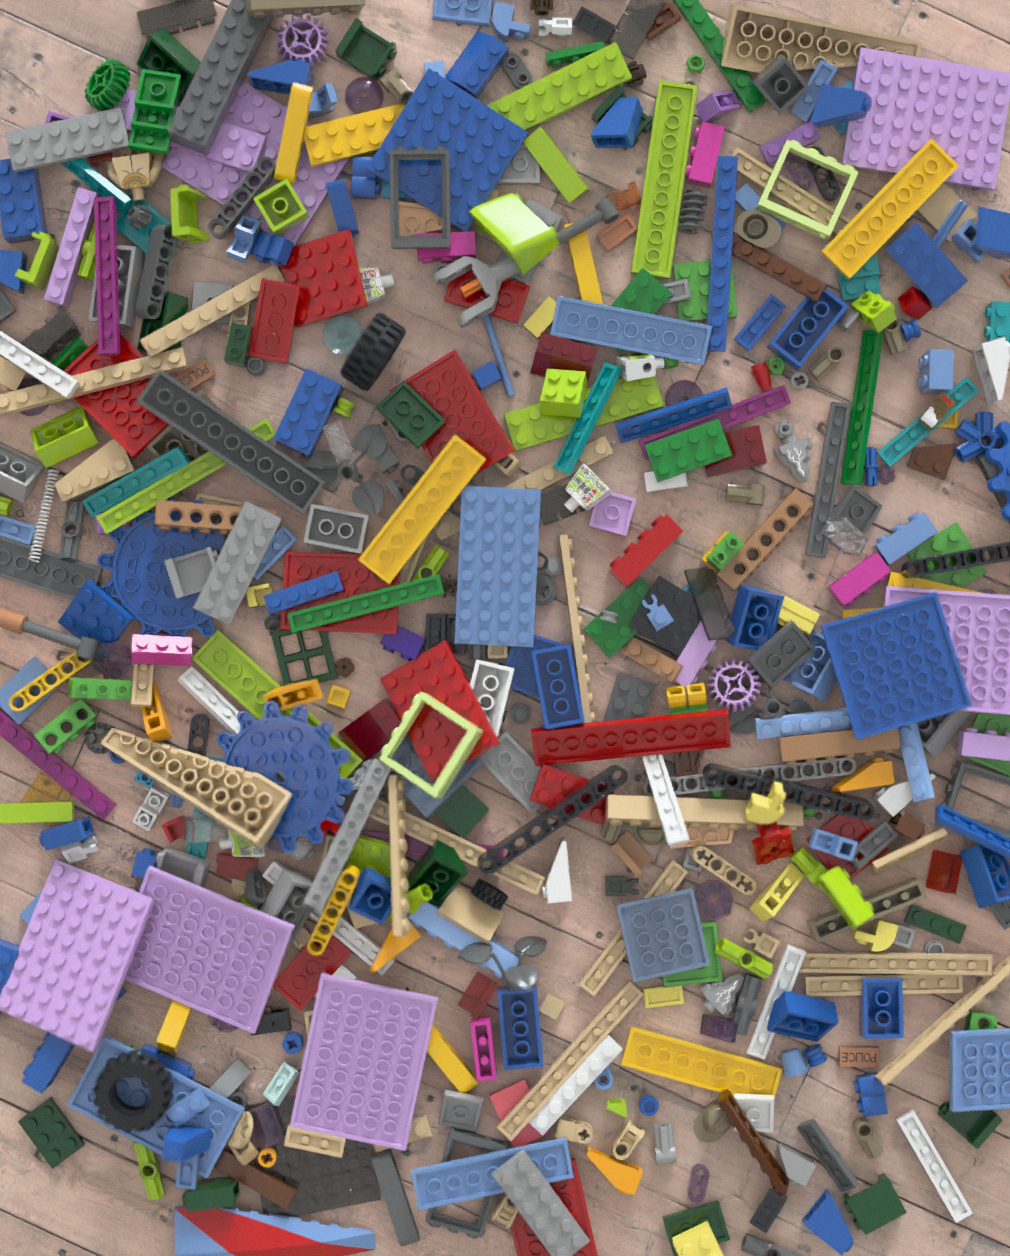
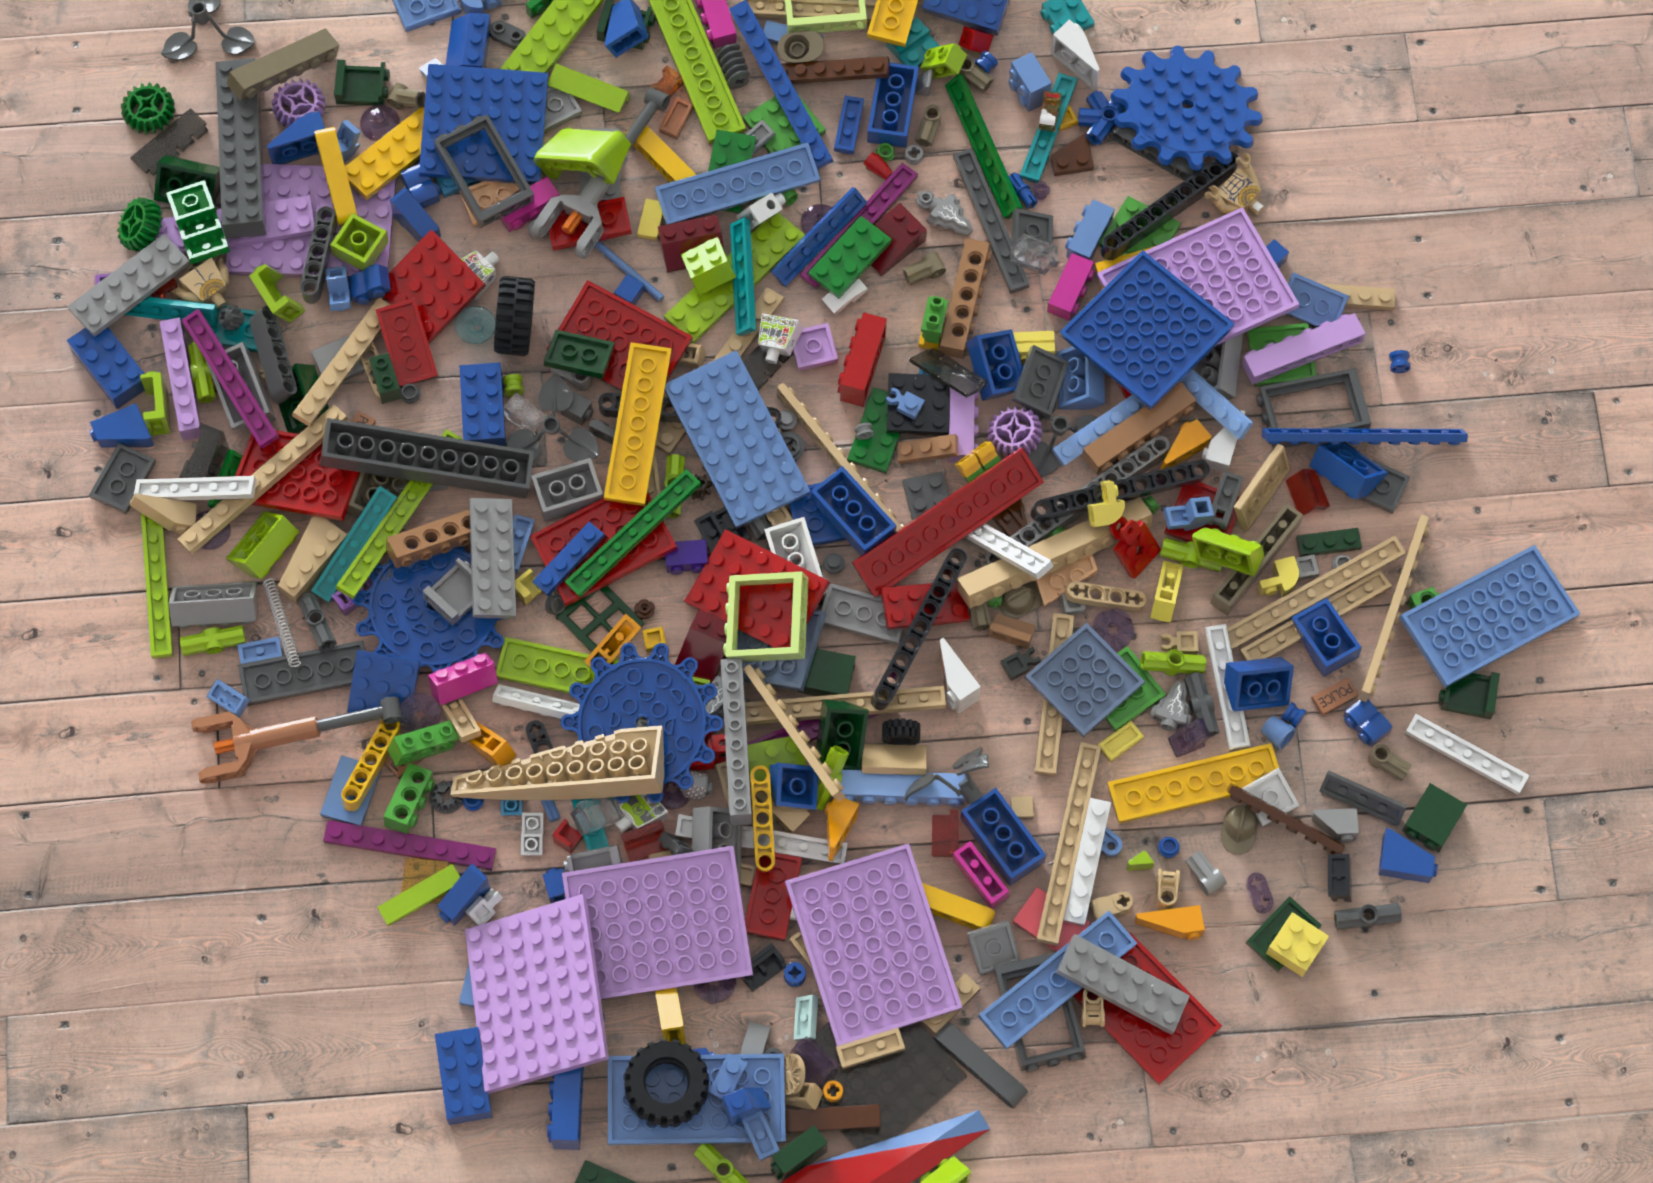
camera: 30 degrees left, 20 degrees down
(907, 825) = (1246, 463): reddish brown brick -> none

